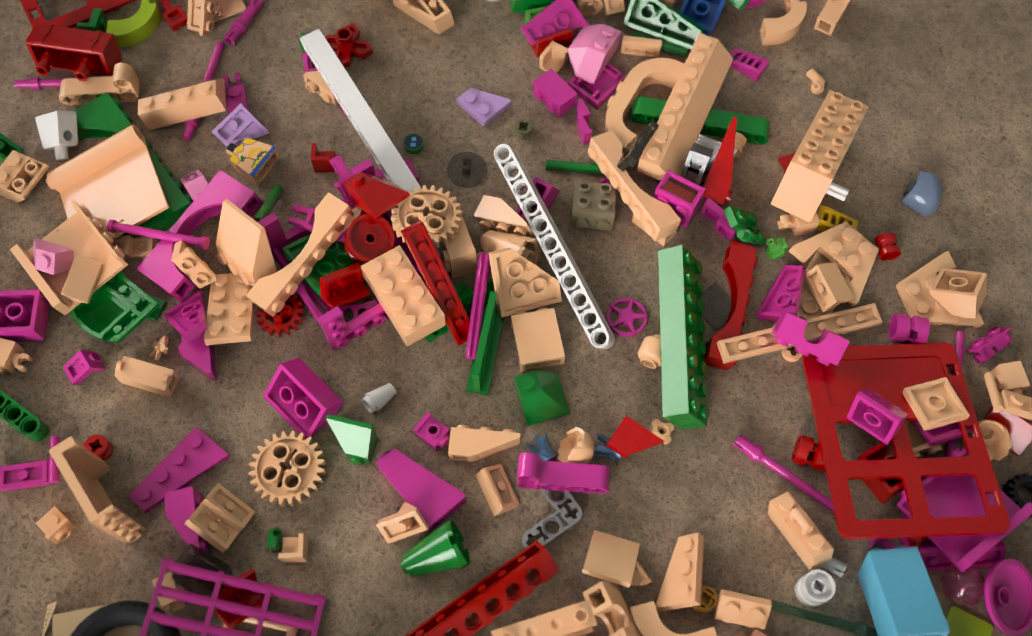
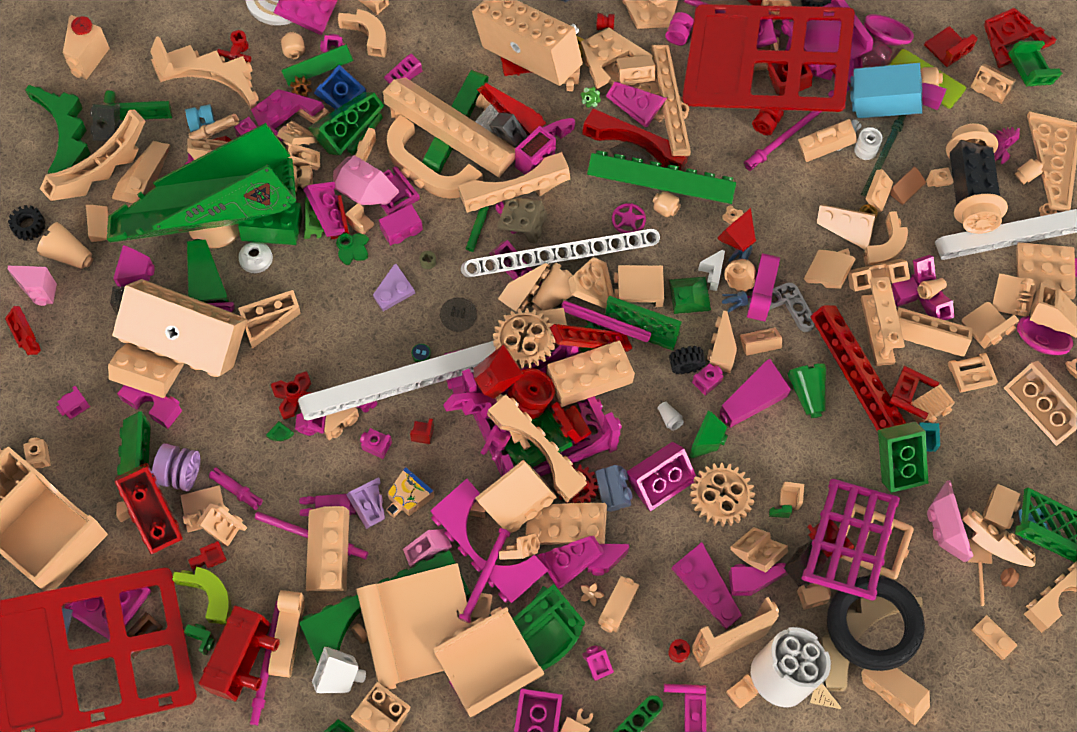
camera: 80 degrees left, 0 degrees up
(51, 257) = (487, 678): bright pink slope -> none
(80, 548) = (790, 667): none -> white brick
(81, 279) = (517, 648): light nougat slope -> none
(269, 203) = (472, 476): green piece -> none
(277, 348) = (614, 487): none -> sand blue brick
(304, 122) = (378, 448): none -> dark pink brick
(402, 524) = (785, 404): light nougat slope -> none
(447, 402) = (687, 360): none -> black tyre
(521, 63) = (353, 250): none -> green plate
(582, 122) = (428, 210): dark pink slope -> none
(585, 419) = (713, 266): none -> white slope
(636, 146) = (486, 166): clear smoke wing -> none
(745, 224) = (565, 112): green plate -> none
(818, 82) = (437, 26): light nougat arm -> none
(827, 347) = (676, 98): dark pink arch -> none
(876, 415) = (756, 63): dark pink slope -> none
(935, 403) = (748, 27): light nougat tile -> none

